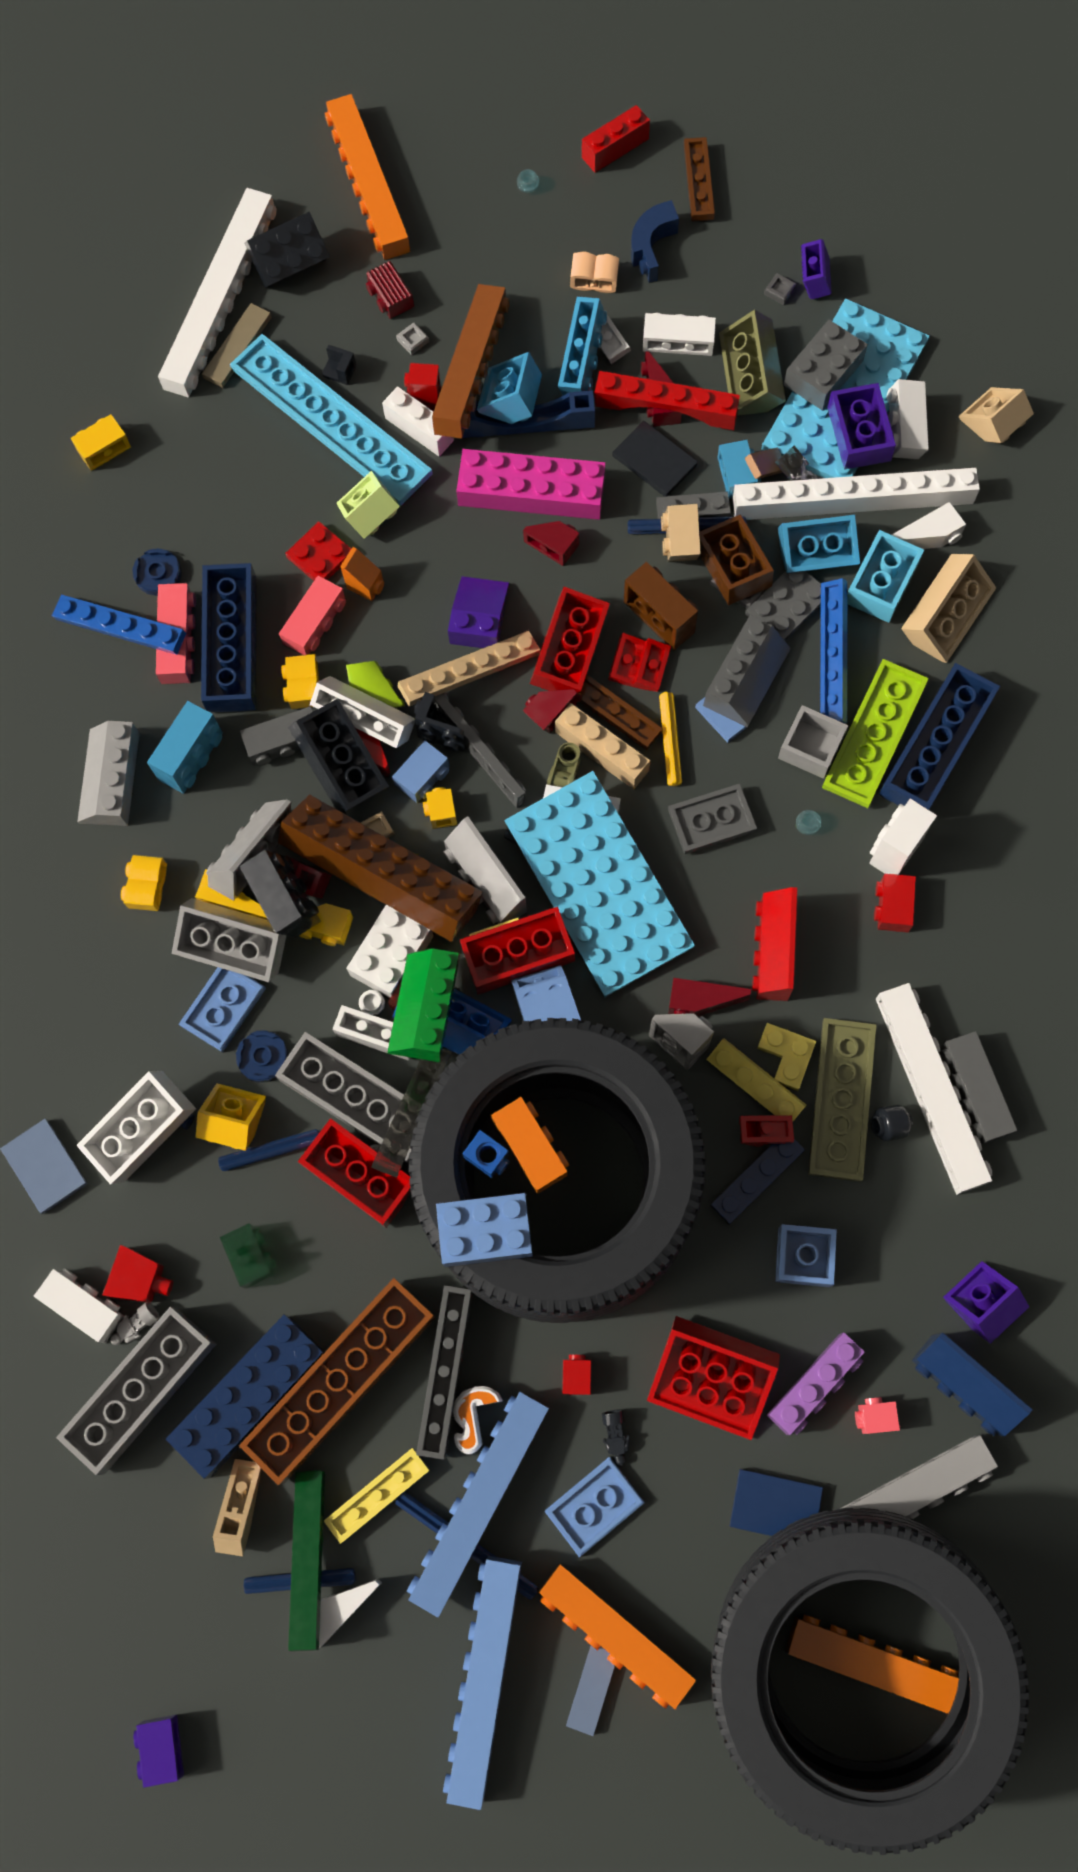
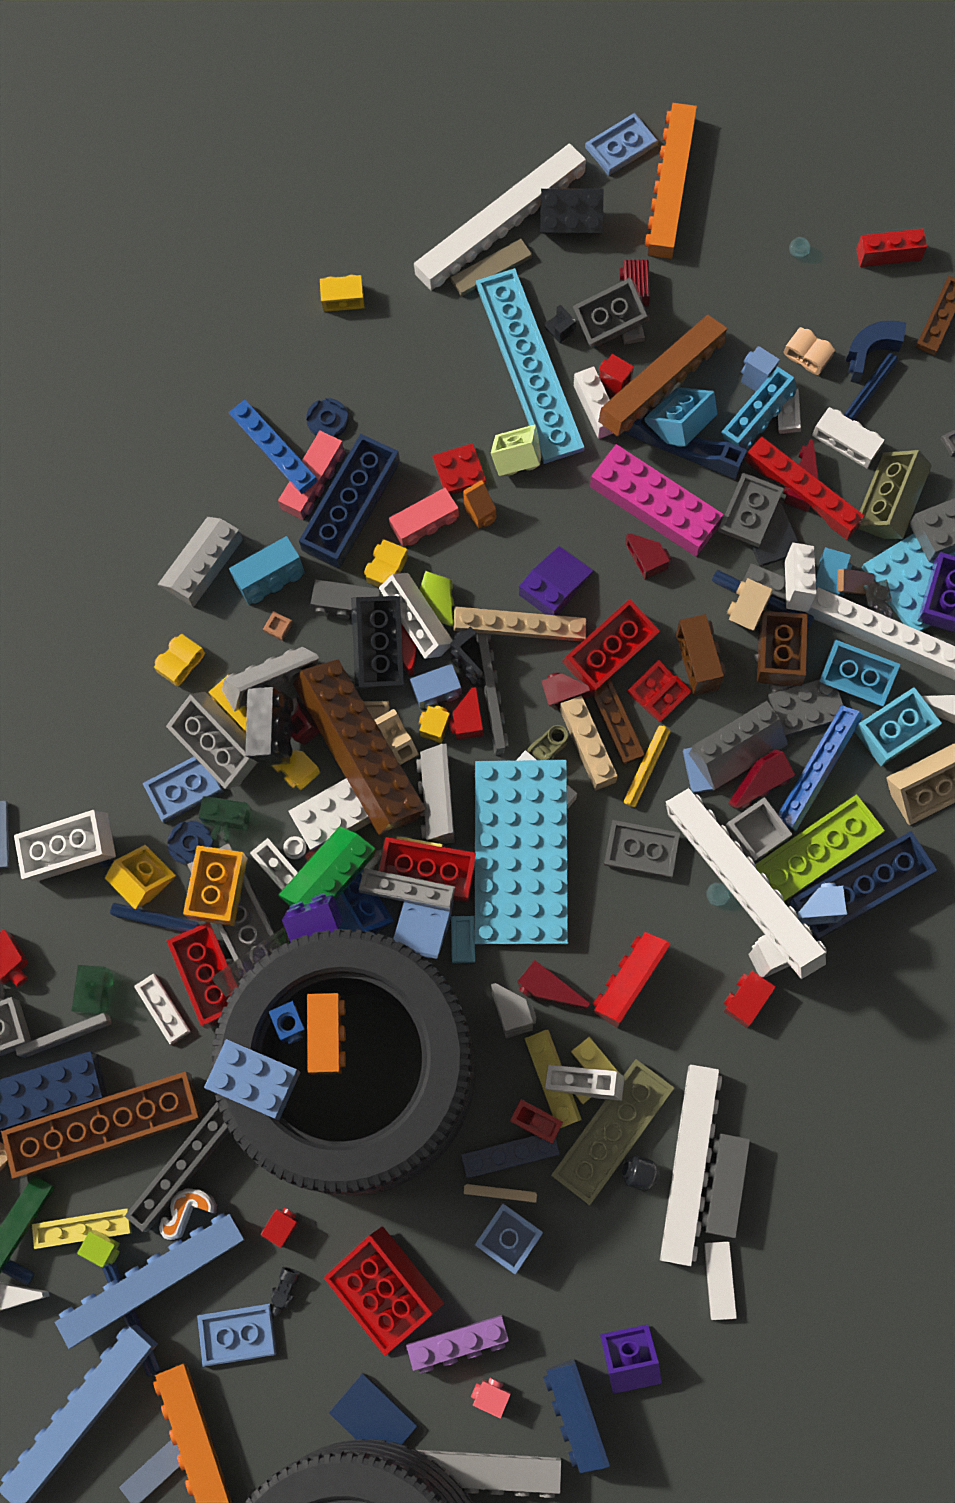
camera: 30 degrees right, 0 degrees up
(226, 798) = (278, 626): none -> nougat tile
(244, 1316) = (63, 1035): none -> light grey tile
(282, 1007) = (224, 814): none -> clear green brick
(297, 167) = (621, 144): none -> medium blue tile
(318, 1077) = (215, 885): none -> light orange brick
(330, 1234) = (162, 1009): none -> white tile
(385, 326) = (611, 313): none -> dark grey brick
(409, 837) = (396, 736): none -> tan brick
(409, 1503) = (99, 1249): none -> lime brick
(439, 1048) = (312, 917): none -> dark purple brick
(470, 785) = (467, 717): none -> red slope
(511, 977) = (407, 889): none -> light grey tile
(558, 310) = (758, 368): none -> medium blue brick
(590, 999) = (463, 939): none -> medium azure tile
(627, 446) = (750, 509): none -> dark grey plate
(672, 276) = (871, 387): none -> dark blue axle
(713, 484) = (800, 577): none -> white brick
(771, 1218) = (500, 1193): none -> tan tile
(786, 687) = (764, 775): none -> dark red slope
(791, 1065) = (585, 1082): none -> white slope
(836, 790) = (747, 884): none -> white brick
(920, 773) = (824, 906): none -> light blue slope
(1024, 1180) = (720, 1280): none -> white tile

